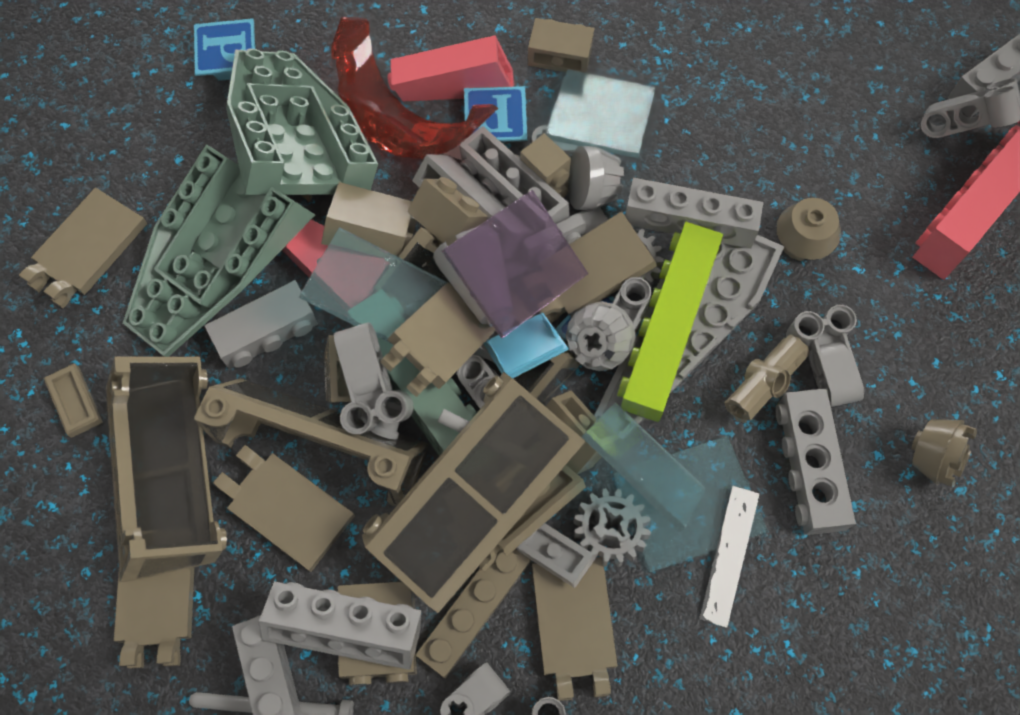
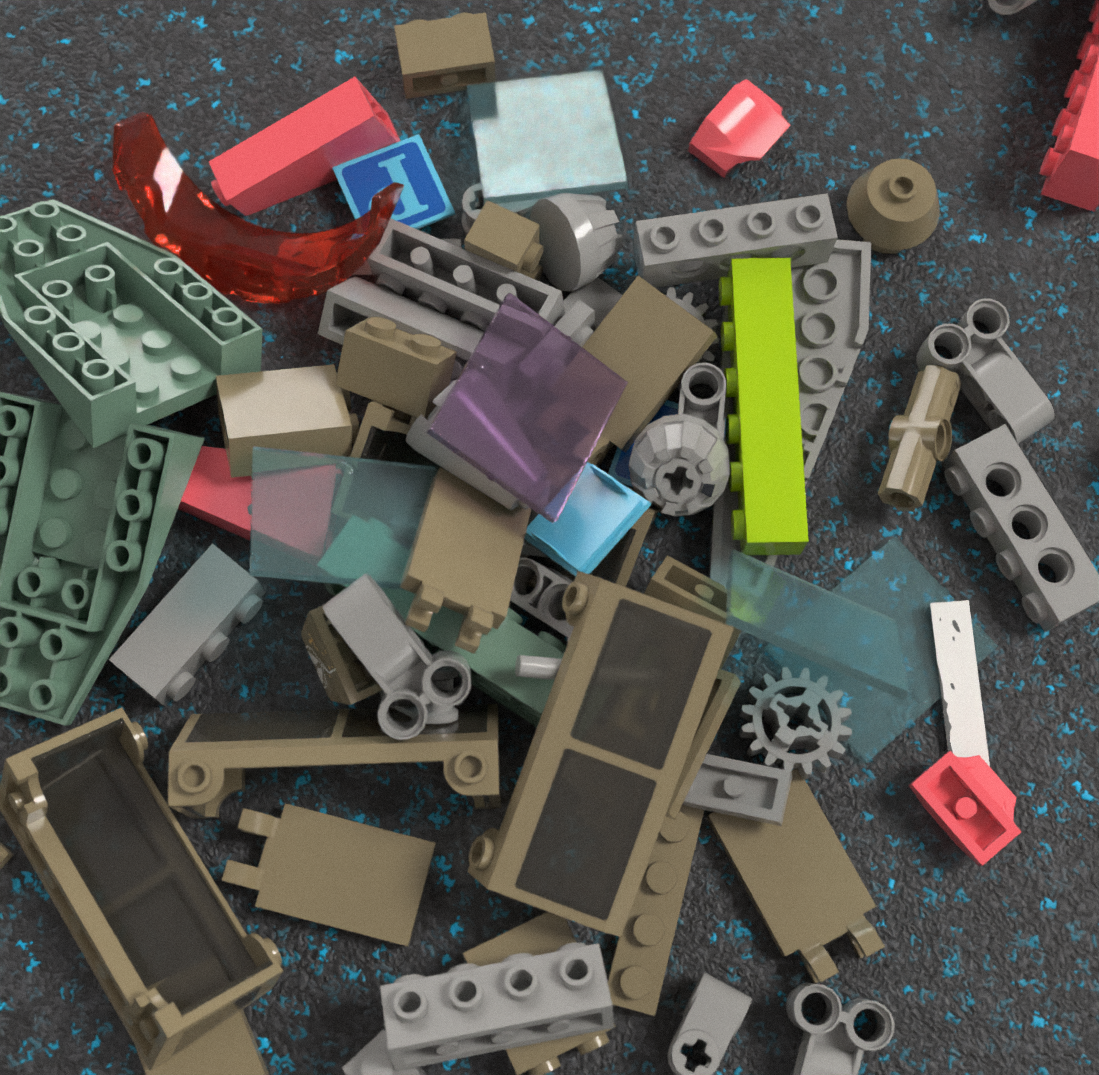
camera: 25 degrees left, 5 degrees up
(706, 624) = (968, 804): none -> coral slope
(726, 149) = (738, 129): none -> coral slope

